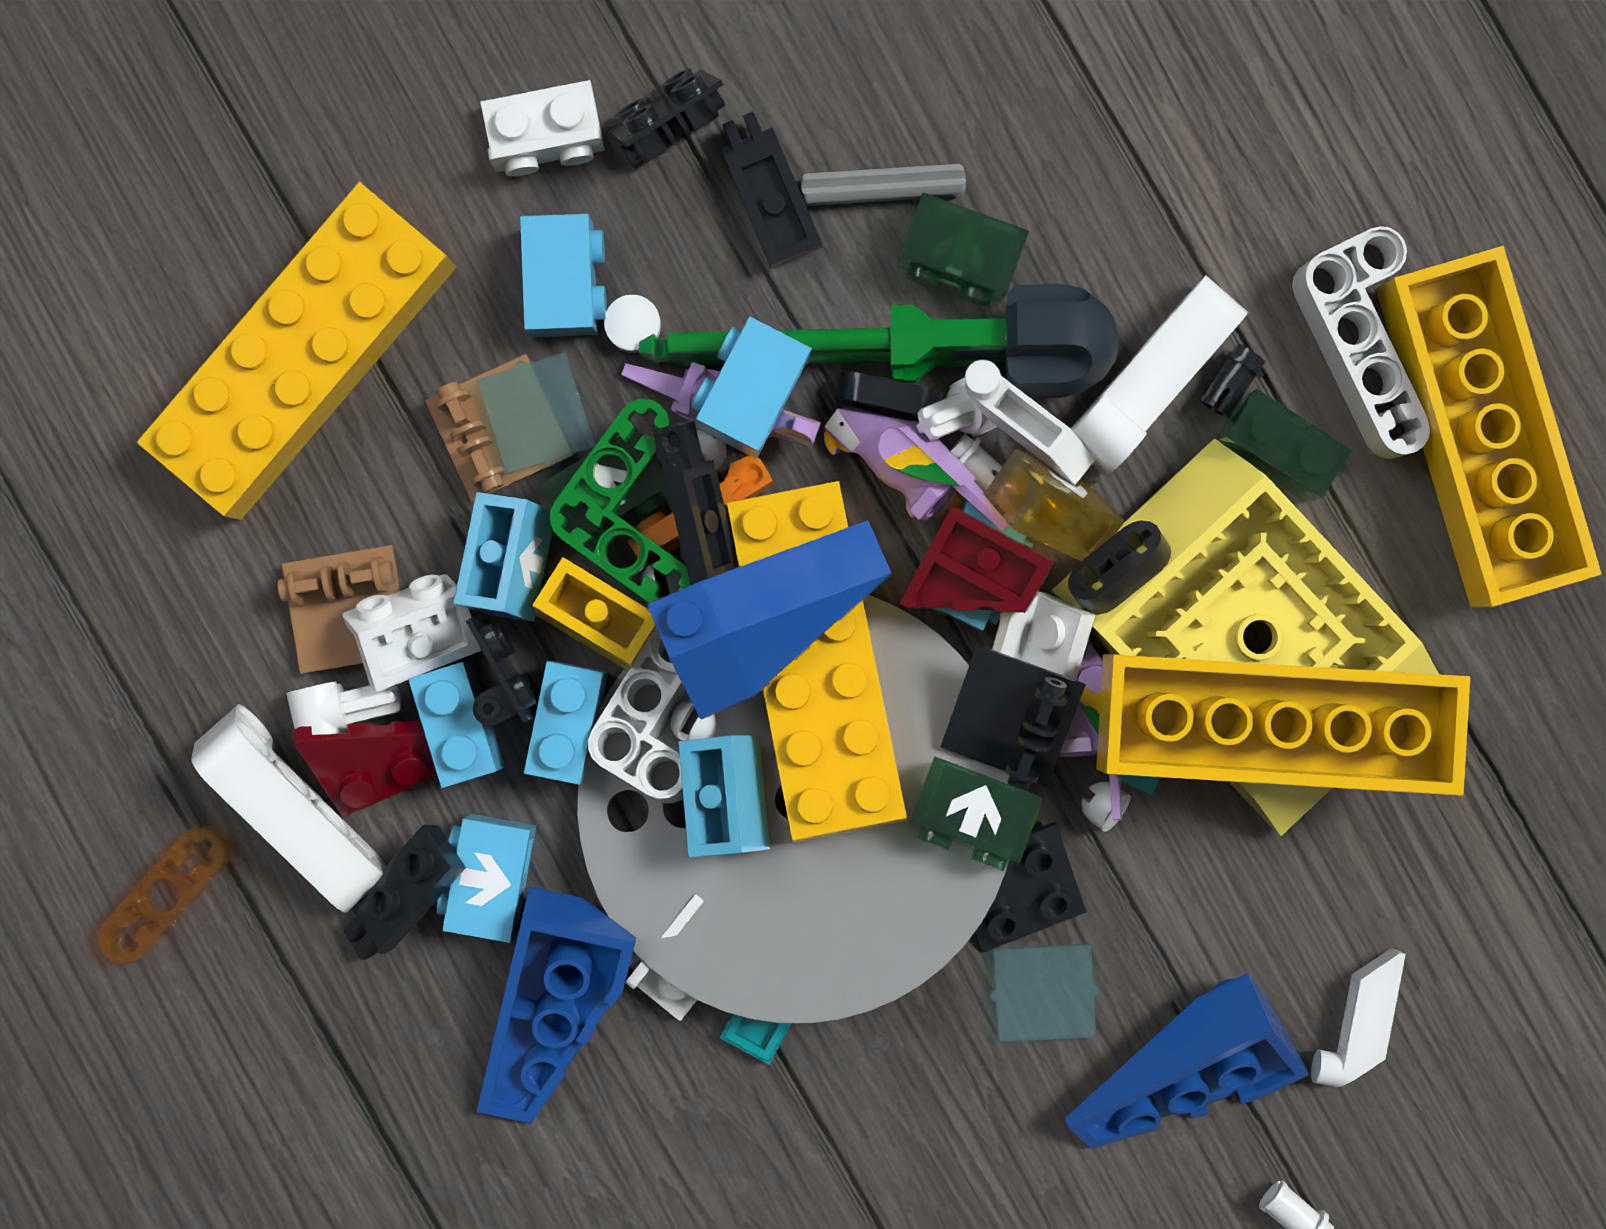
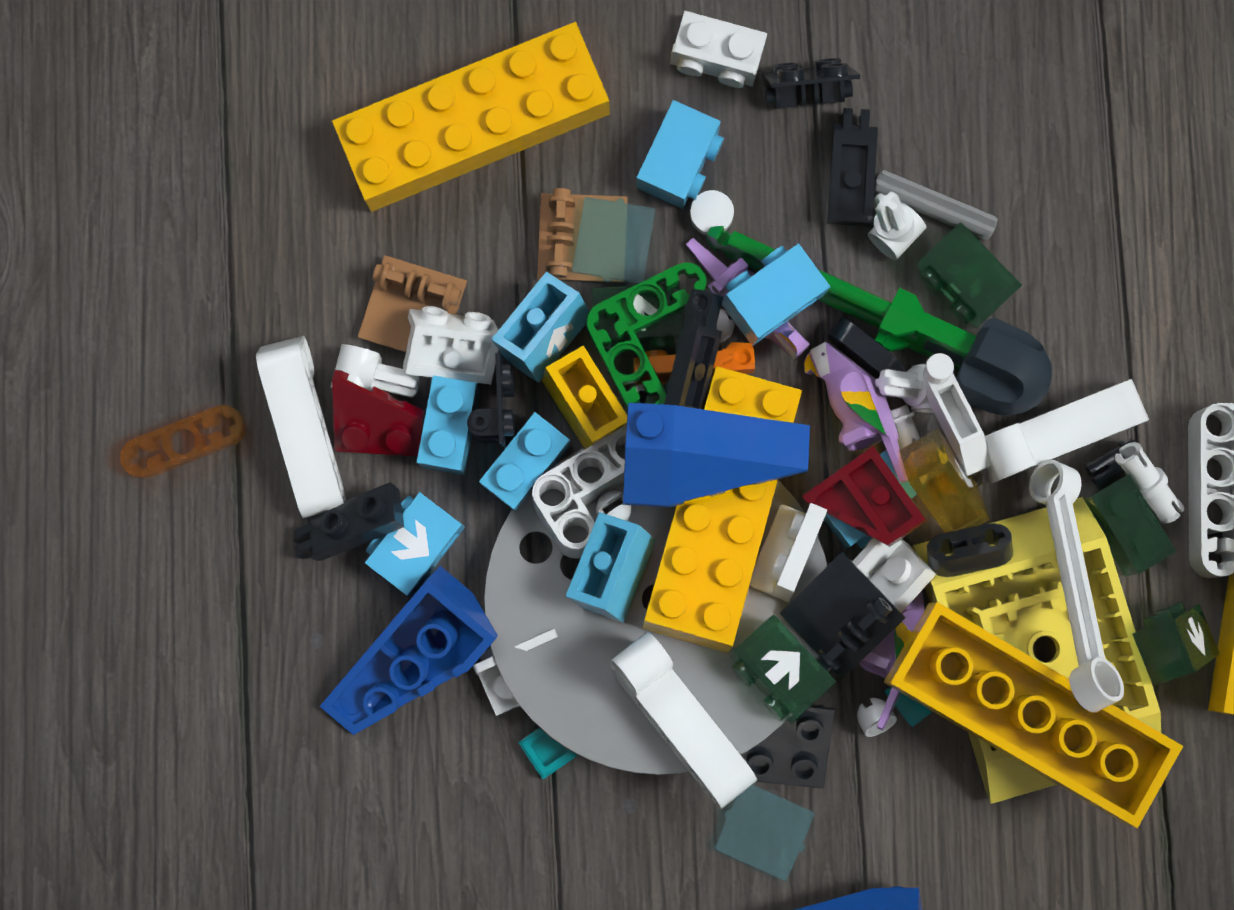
camera: 35 degrees right, 5 degrees down
(849, 234) = (894, 225): none -> white axle
(893, 929) = (681, 721): none -> white beam
(913, 672) = (786, 550): none -> white bracket
(1283, 384) = (1150, 482): none -> white pin
(1337, 654) = (1096, 680): none -> white piece
(1401, 554) = (1175, 642): none -> clear green brick

